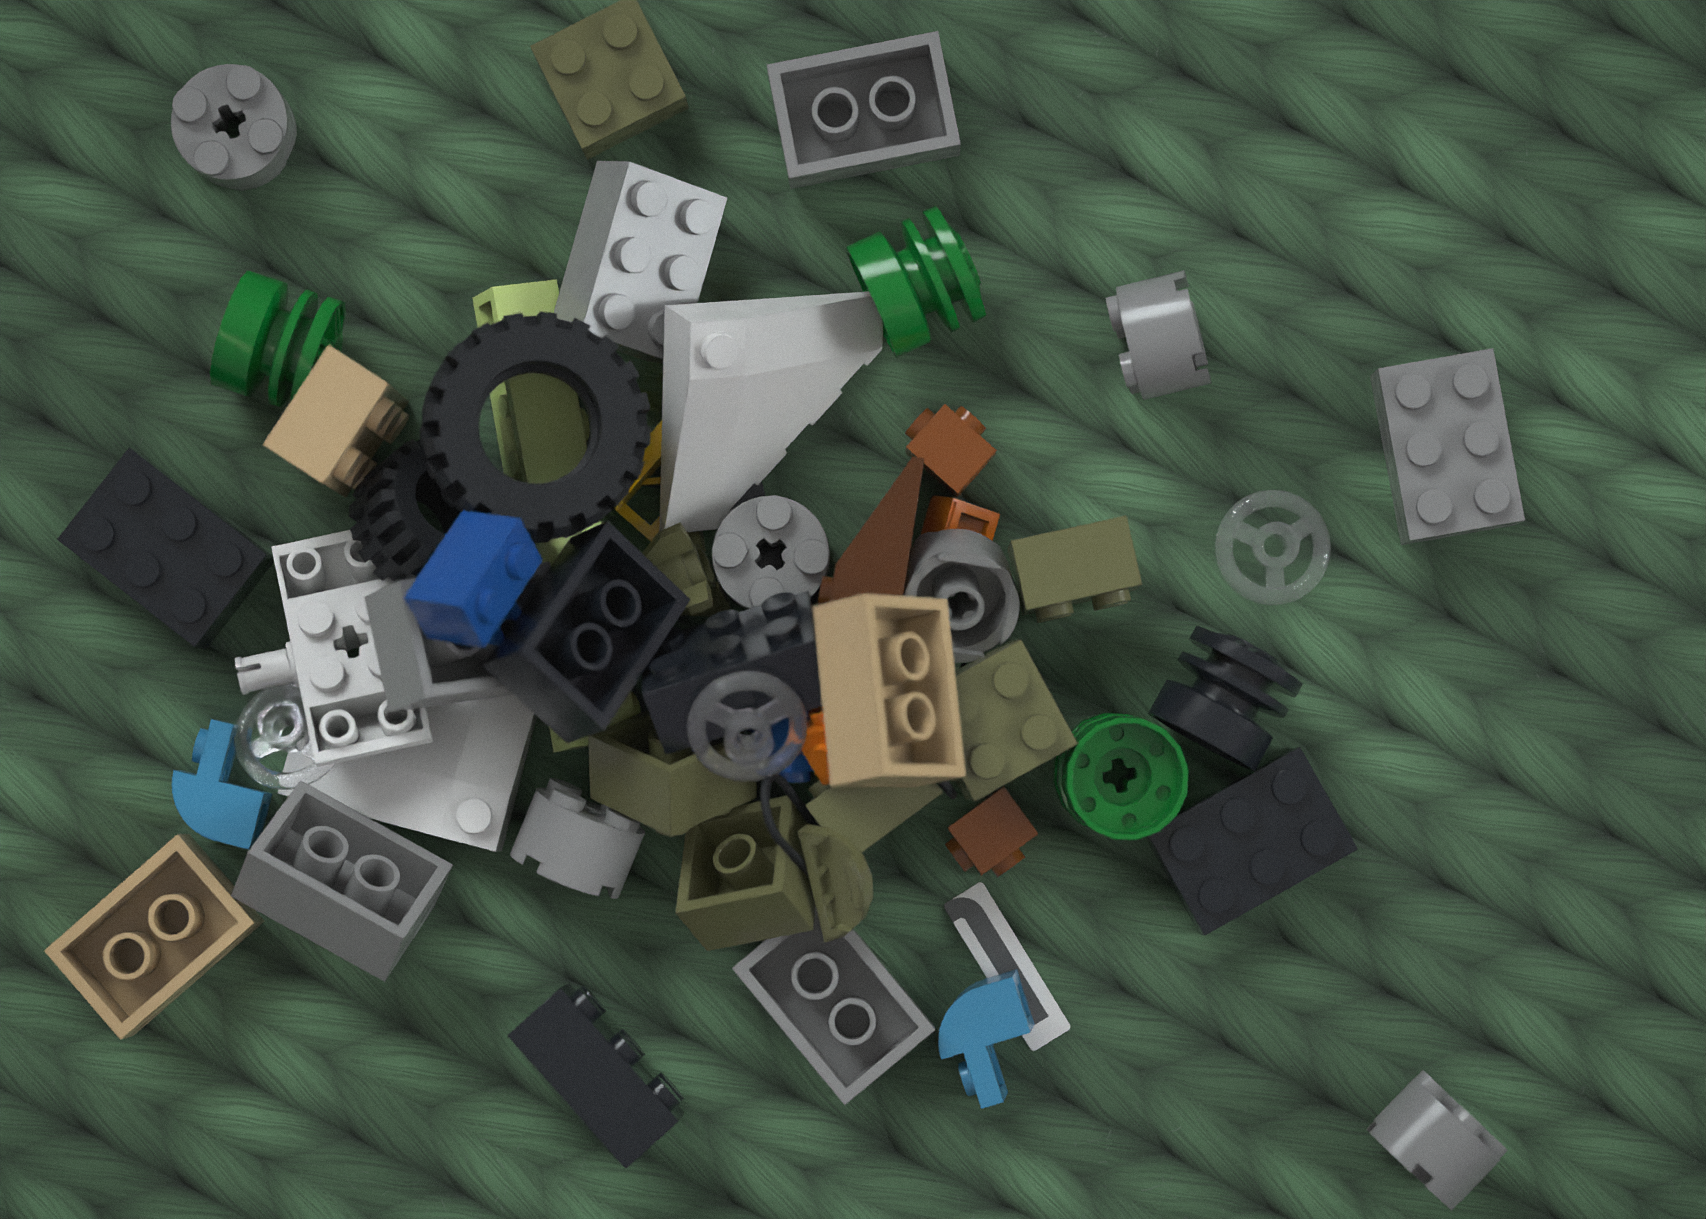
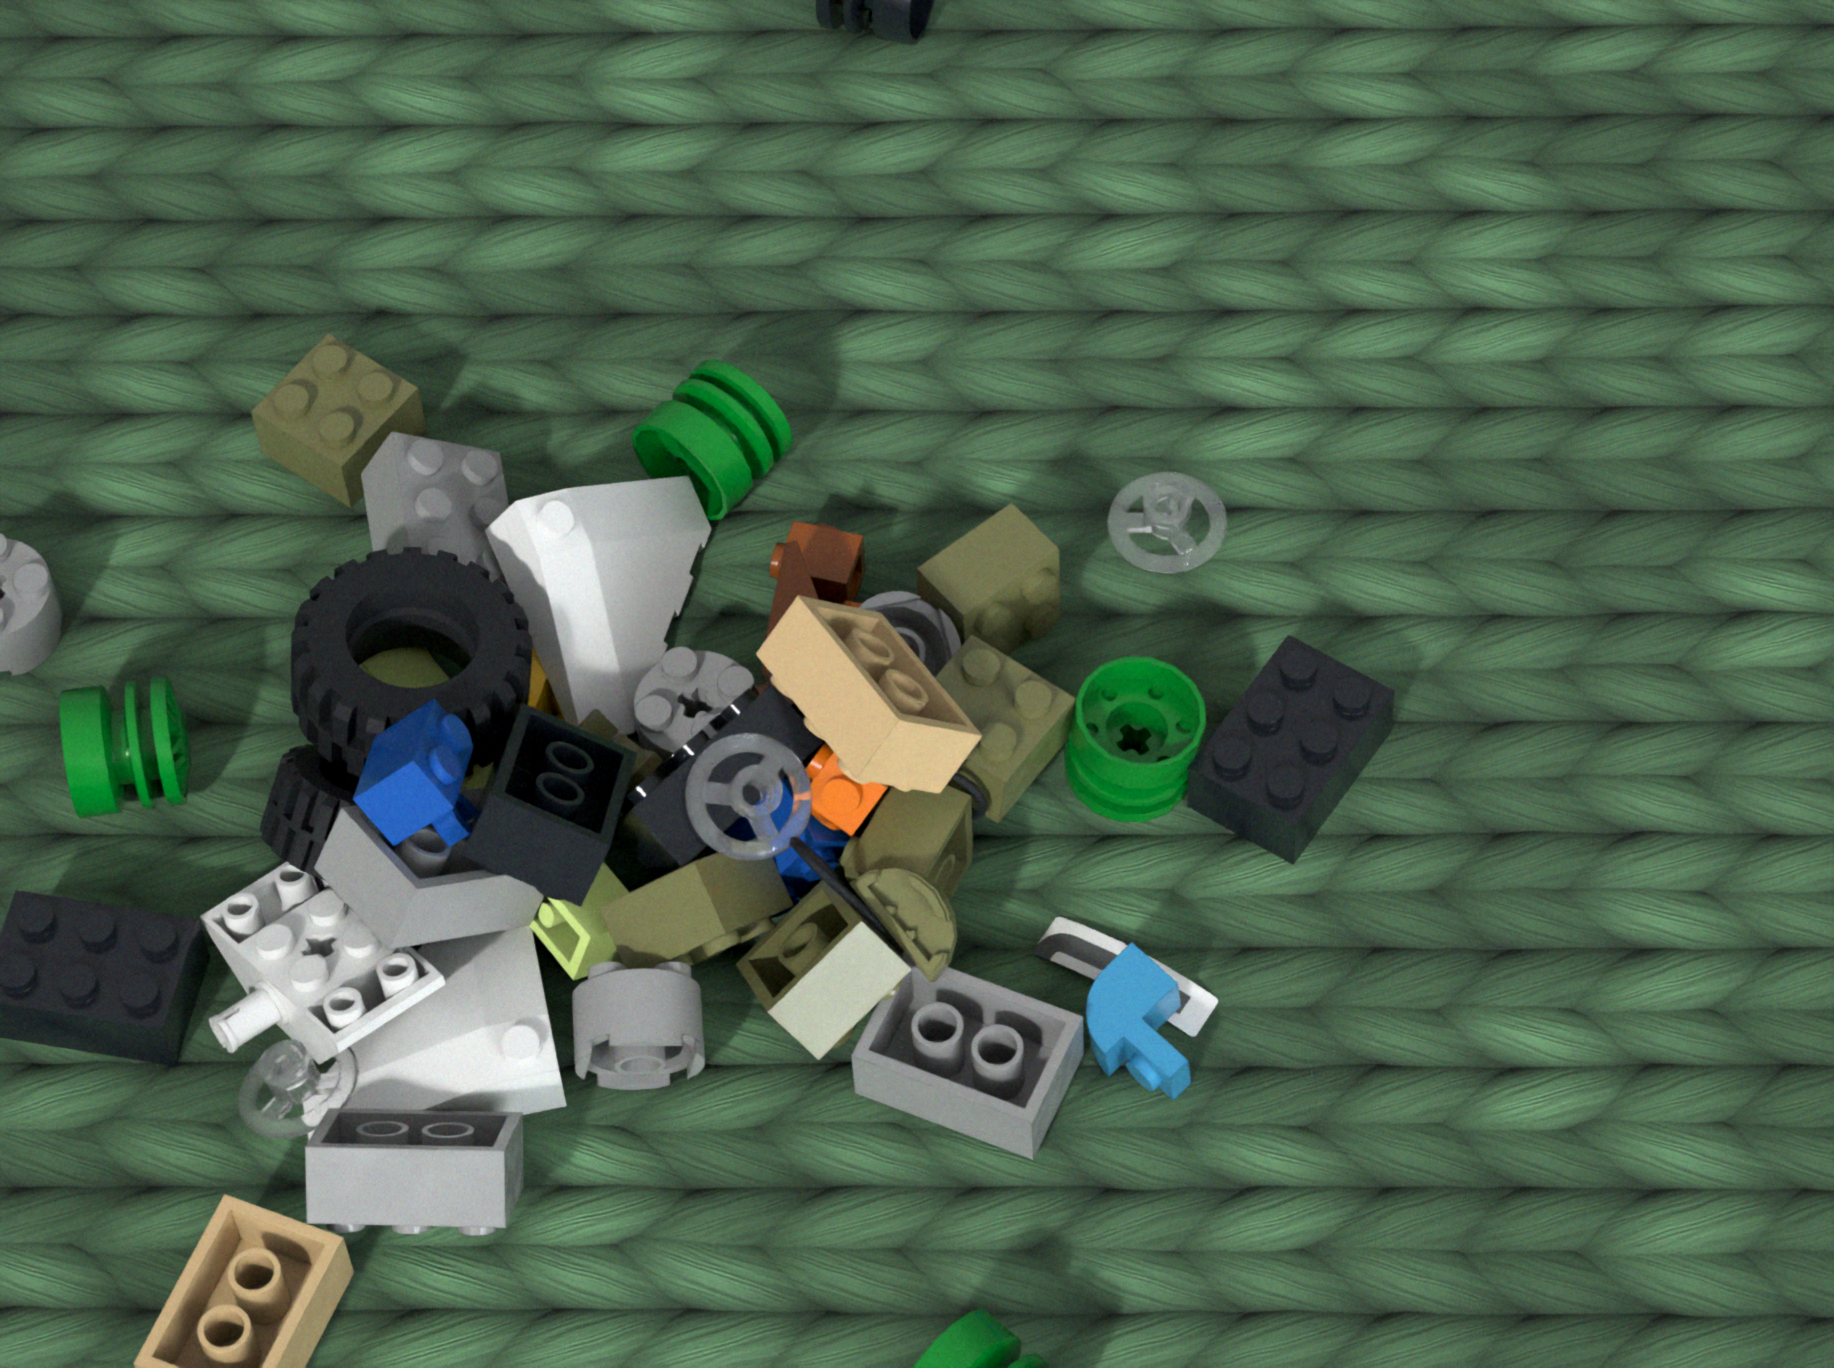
camera: 30 degrees left, 30 degrees down
(210, 802) = (258, 1171): dark azure brick -> none
(338, 422) = (214, 768): tan brick -> none
(598, 1073) = (768, 1223): black brick -> none
(864, 109) = (590, 340): light grey brick -> none
(991, 835) = (1041, 855): dark orange brick -> none
(1160, 336) = (962, 387): light grey brick -> none
(1225, 697) = (1202, 620): black wheel -> none
(1437, 1140) = (1625, 902): light grey brick -> none
(1447, 446) = (1275, 367): light grey brick -> none

